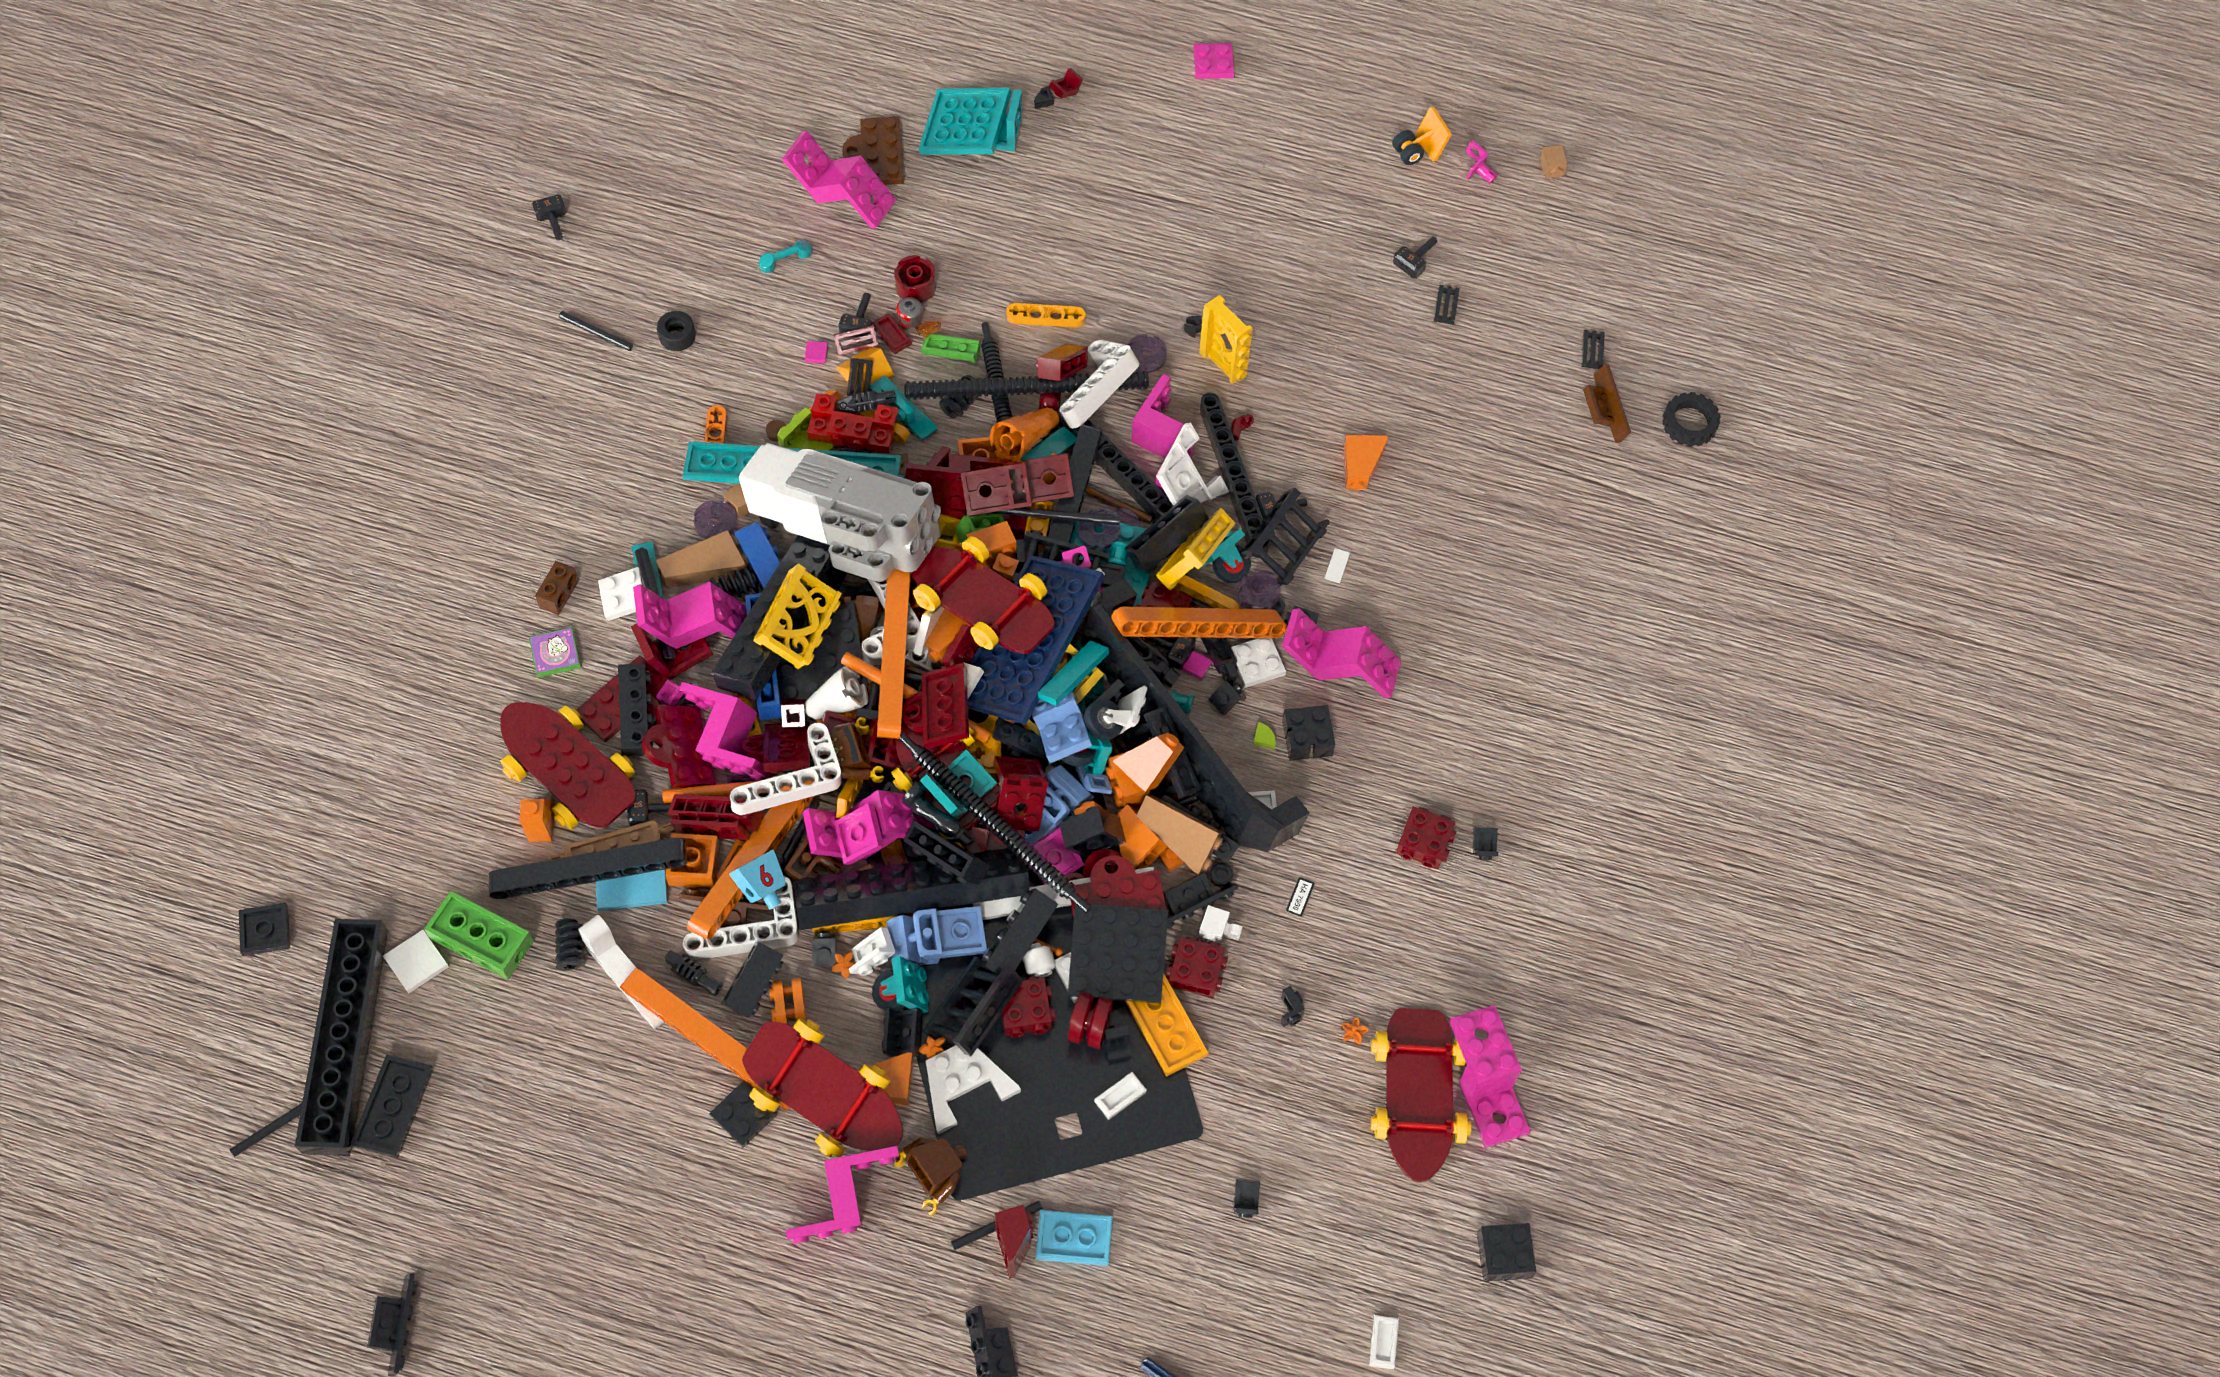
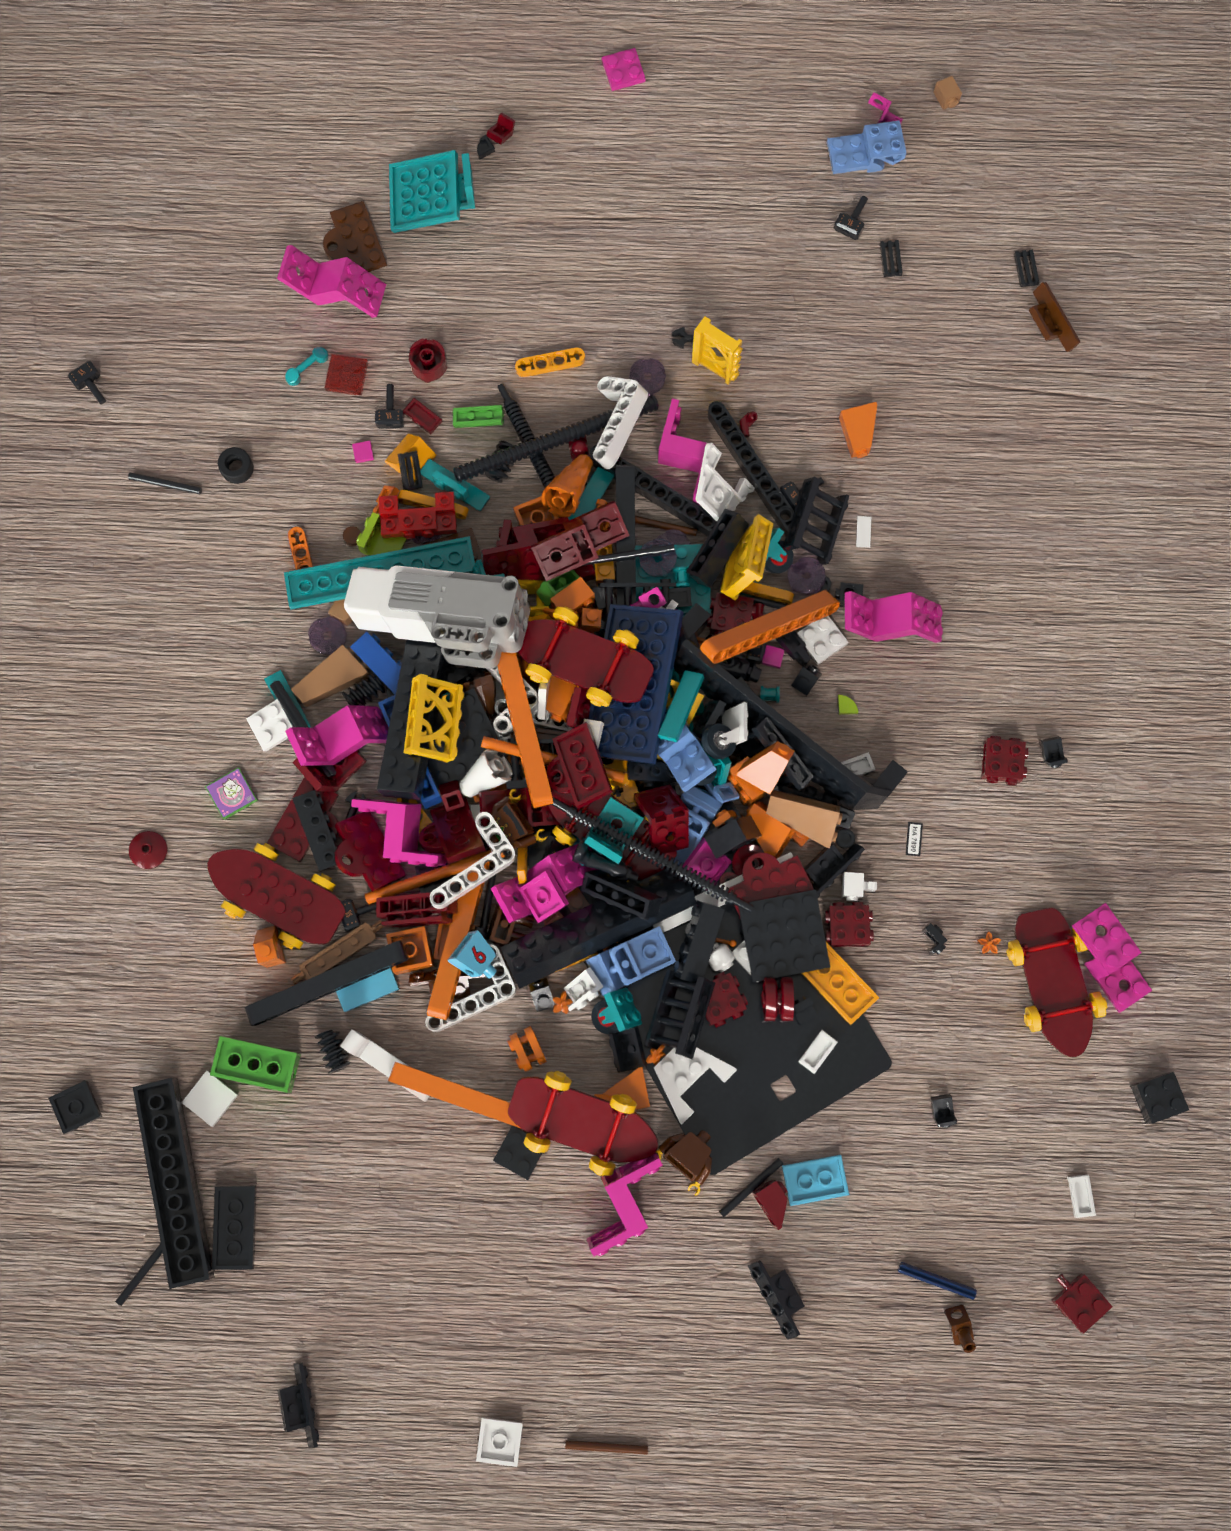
camera: 10 degrees left, 15 degrees up
(445, 694) = (156, 853): none -> dark red dish
(557, 587) = (214, 736): reddish brown brick -> none
(669, 693) = (341, 805): dark pink tile -> none
(692, 972) = (441, 1045): black hinge -> none
(753, 980) = (493, 1040): black brick -> none
(824, 274) = (346, 374): none -> clear red plate
(854, 332) = (391, 426): tile -> none
(865, 401) = (423, 492): black hinge -> none
(909, 312) = (432, 393): flat silver head -> none
(927, 328) = (456, 399): clear orange piece -> none
(981, 835) = (643, 866): dark red slope -> none
(1062, 362) = (580, 408): brick -> none
(1309, 728) = (884, 690): black piece -> none
(1431, 136) = (837, 97): light orange plate -> none
(1452, 194) = (869, 149): none -> medium blue piece
(1695, 402) = (1134, 298): black tyre -> none

